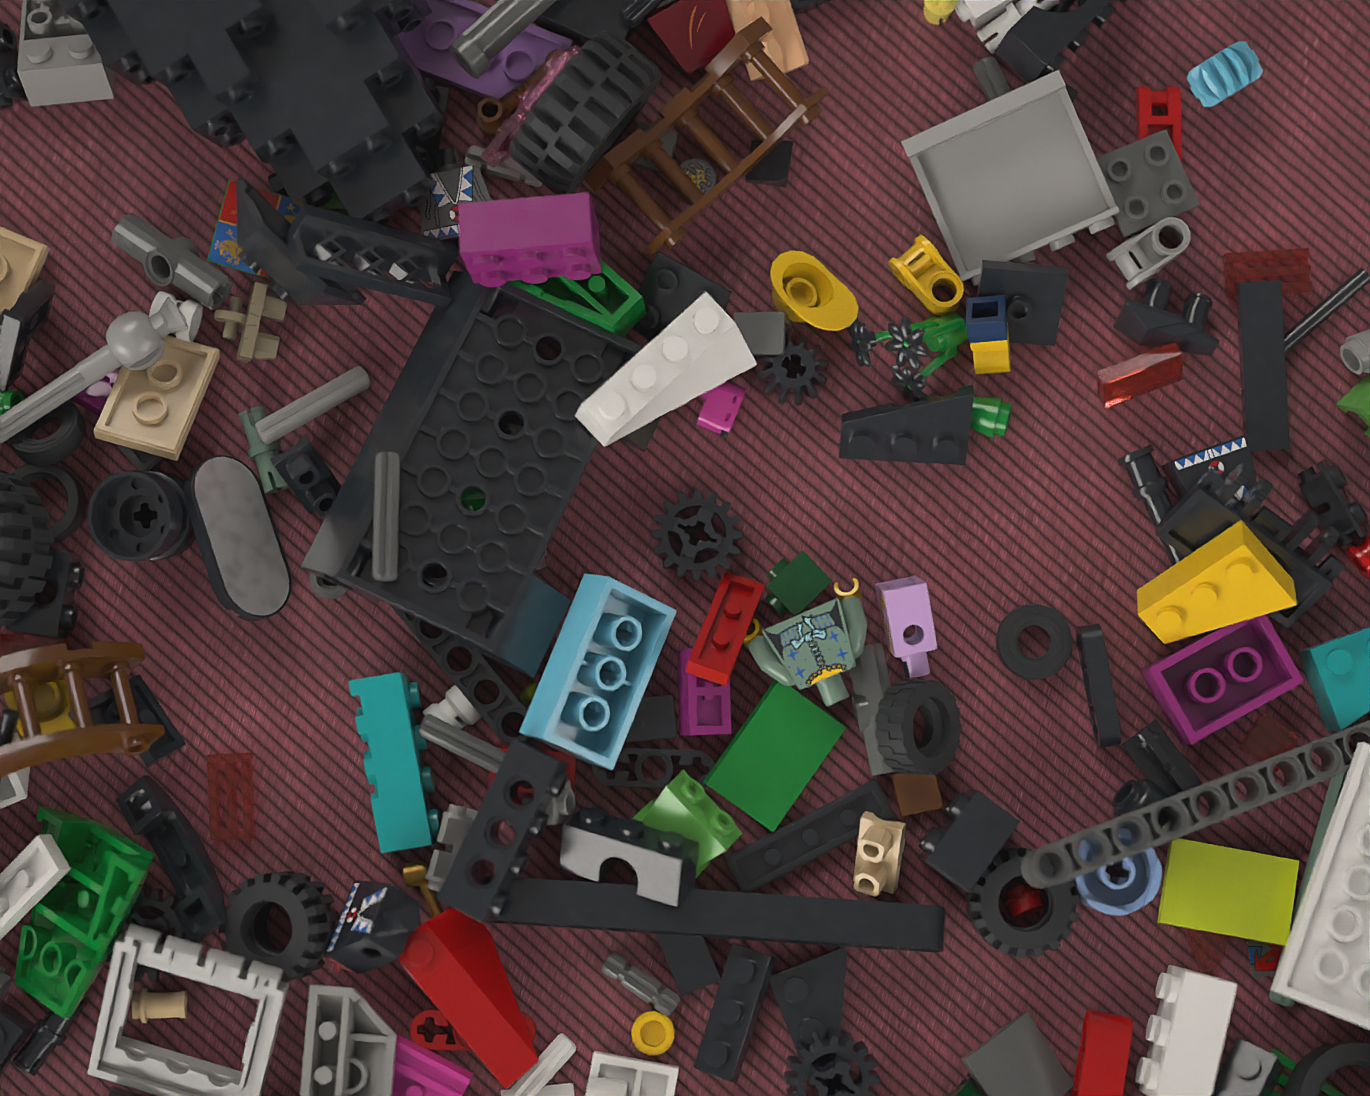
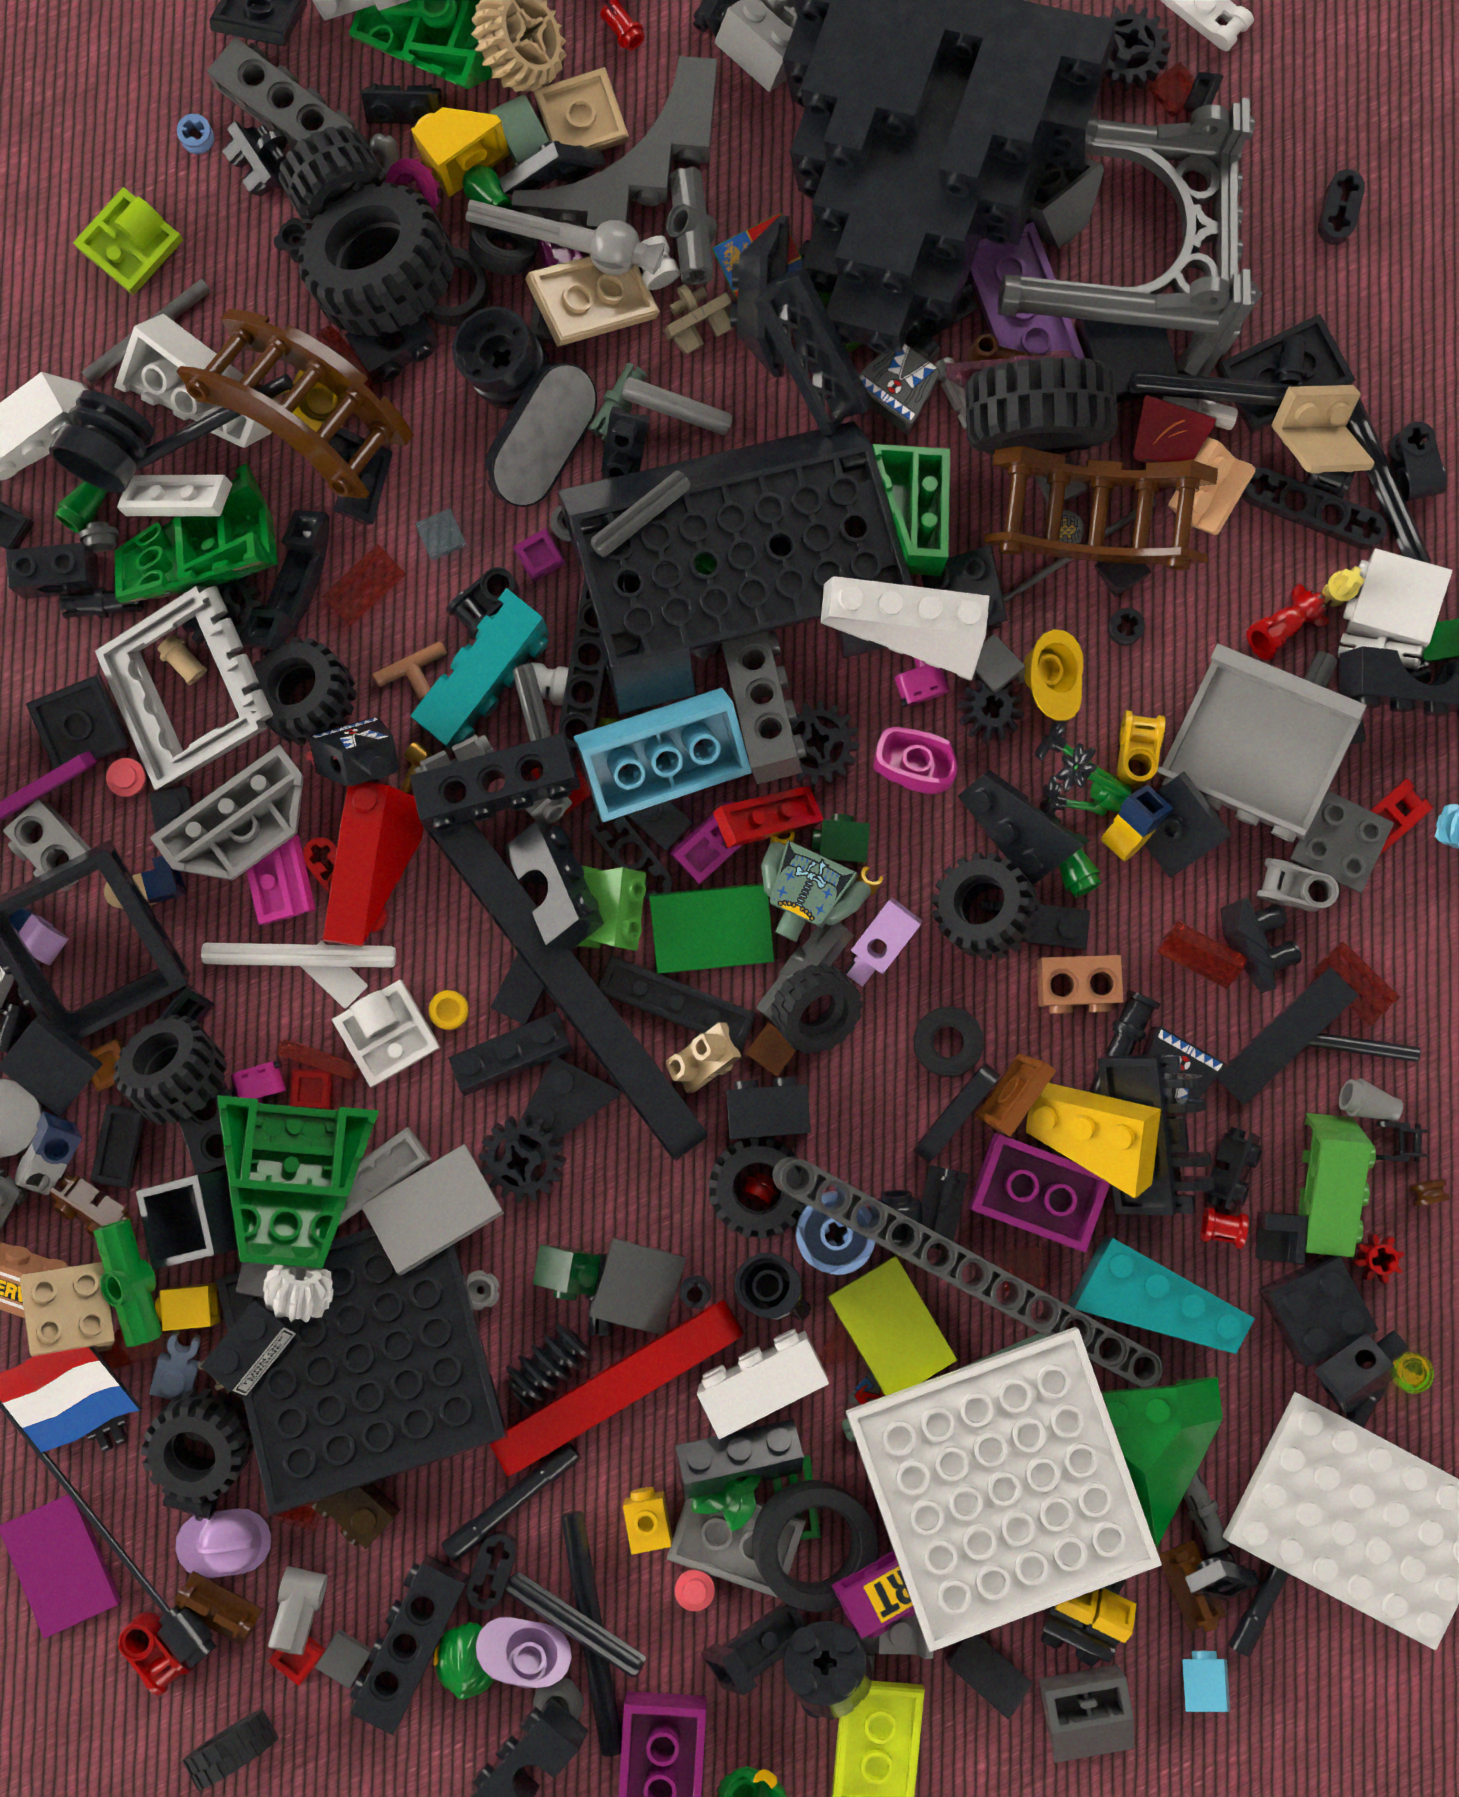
camera: 55 degrees right, 0 degrees up
(91, 260) = (643, 174): none -> dark grey arch
(245, 694) = (440, 534): none -> clear light blue tile
(334, 709) = (480, 599): none -> black piece
(335, 627) = (539, 555): none -> magenta tile
(337, 816) = (411, 667): none -> nougat piece
(530, 239) = (918, 444): magenta brick -> none
(640, 983) = (475, 972): dark grey axle -> none
(677, 587) = (767, 757): none -> dark grey brick
(719, 203) = (1062, 561): none -> dark grey piece
(781, 466) = (915, 760): none -> dark pink piece
(830, 196) = (1137, 631): none -> black bush
(919, 518) = (964, 885): none -> black tyre
(927, 93) = (1270, 634): none -> red animal
(1002, 483) = (1056, 925): none -> black hinge
(1055, 1028) = (687, 1297): none -> black pin
(1070, 487) = (1079, 973): none -> nougat brick
(1115, 964) = (771, 1288): none -> black hat
(1126, 625) = (1015, 1093): none -> dark orange tile

